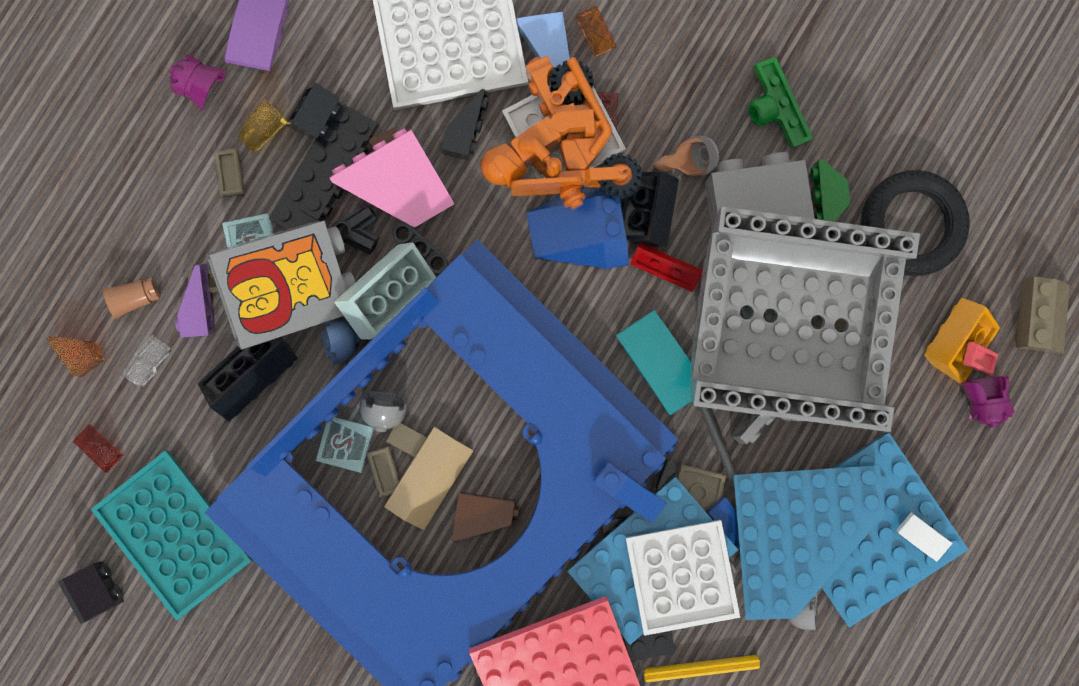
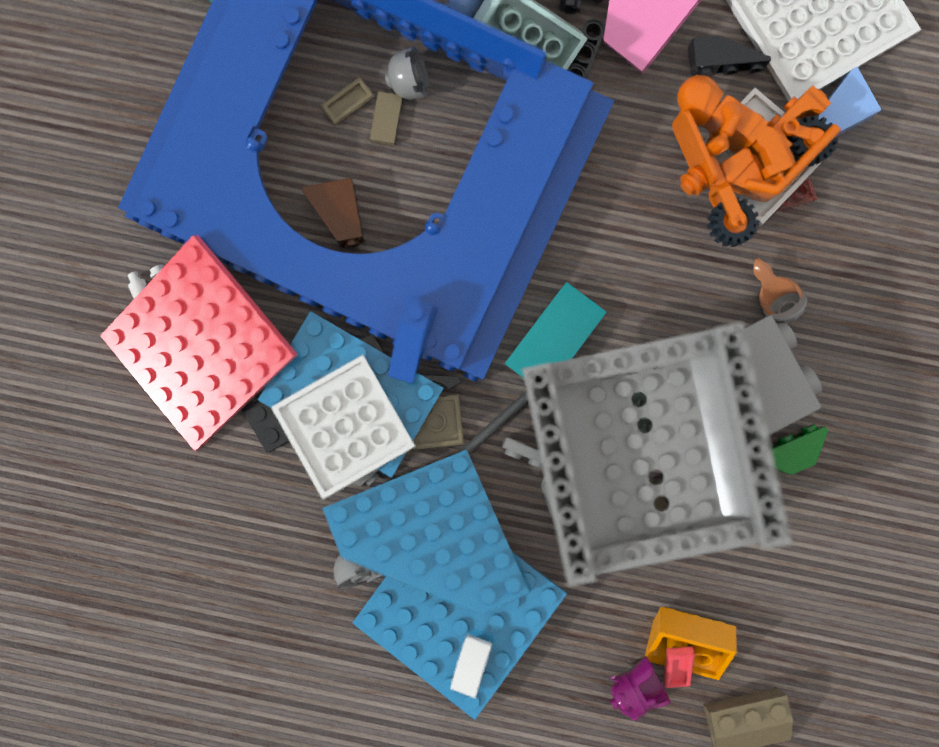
camera: 75 degrees right, 0 degrees up
(345, 444) = (361, 53): clear light blue tile -> none
(428, 478) = (355, 146): tan slope -> none
(582, 235) = (659, 212): blue wedge -> none
(595, 31) = (873, 155): clear orange slope -> none
(650, 209) = (708, 270): black slope -> none
(666, 267) = (655, 306): red plate -> none
(701, 668) = (259, 485): yellow axle -> none
(725, 512) = (418, 457): blue tile -> none
(778, 104) = (868, 367): green plate -> none
(944, 194) = (834, 578): black tyre -> none

